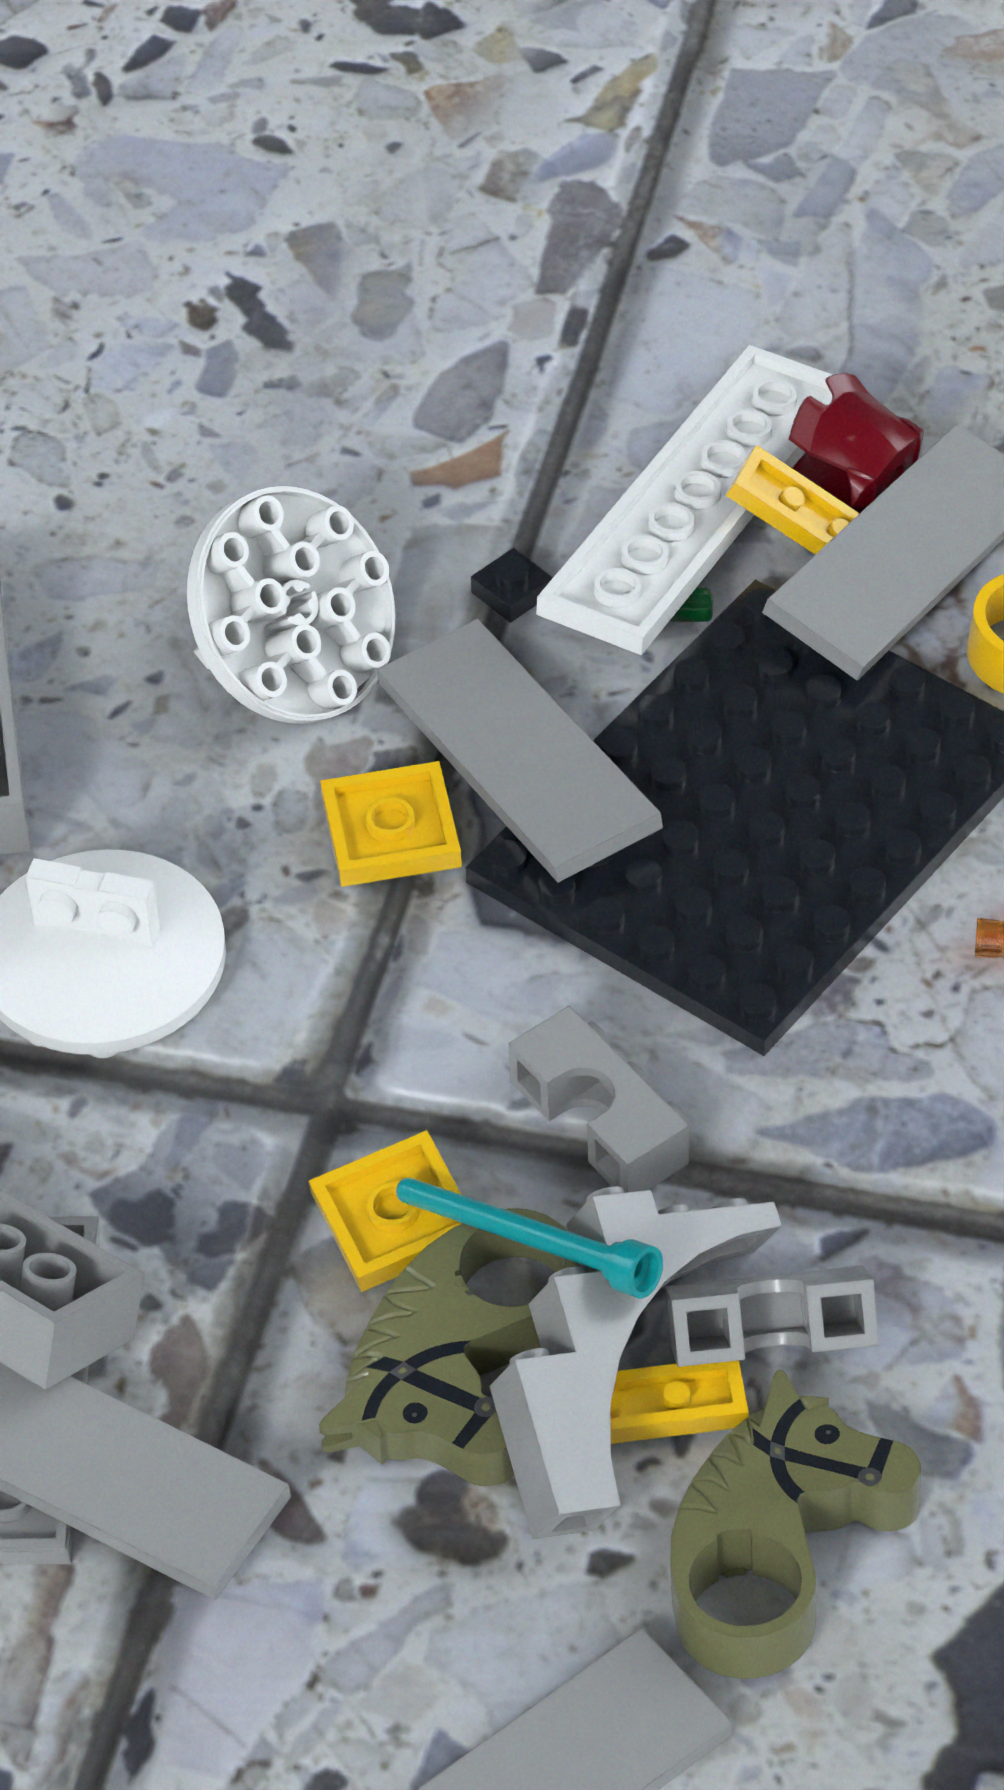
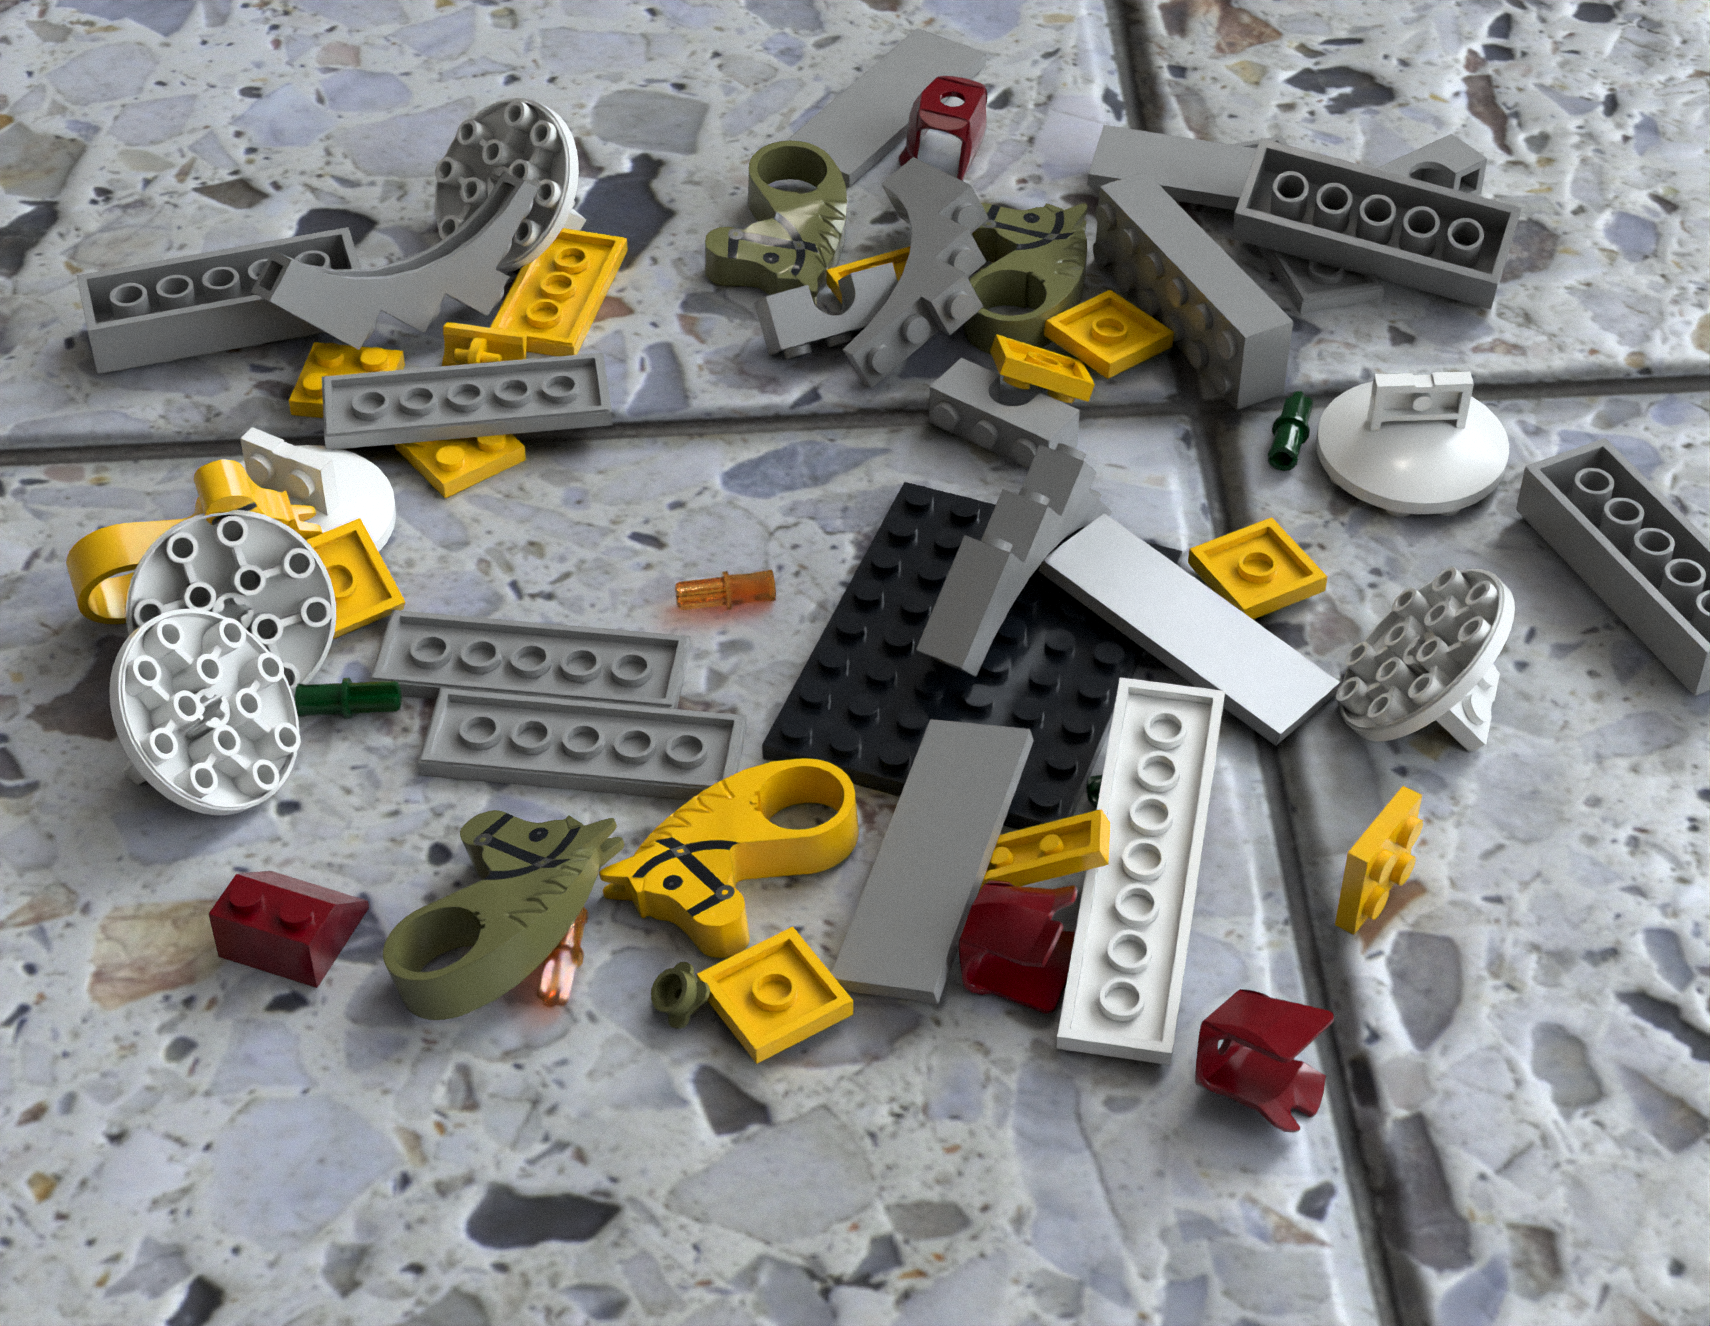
camera: 160 degrees right, 5 degrees down
(236, 1011) = (1290, 432): none -> dark green axle
(267, 1213) = (1193, 289): none -> light grey brick
(465, 438) = (1379, 861): none -> yellow plate
(482, 1651) = (962, 121): none -> dark red piece
(510, 584) = (1273, 791): black plate -> none
(525, 1130) = (1028, 365): none -> yellow plate
(627, 1265) = (925, 242): teal piece -> none
(672, 303) = (1258, 1056): none -> dark red piece
(685, 791) = (1016, 541): none -> light grey arch

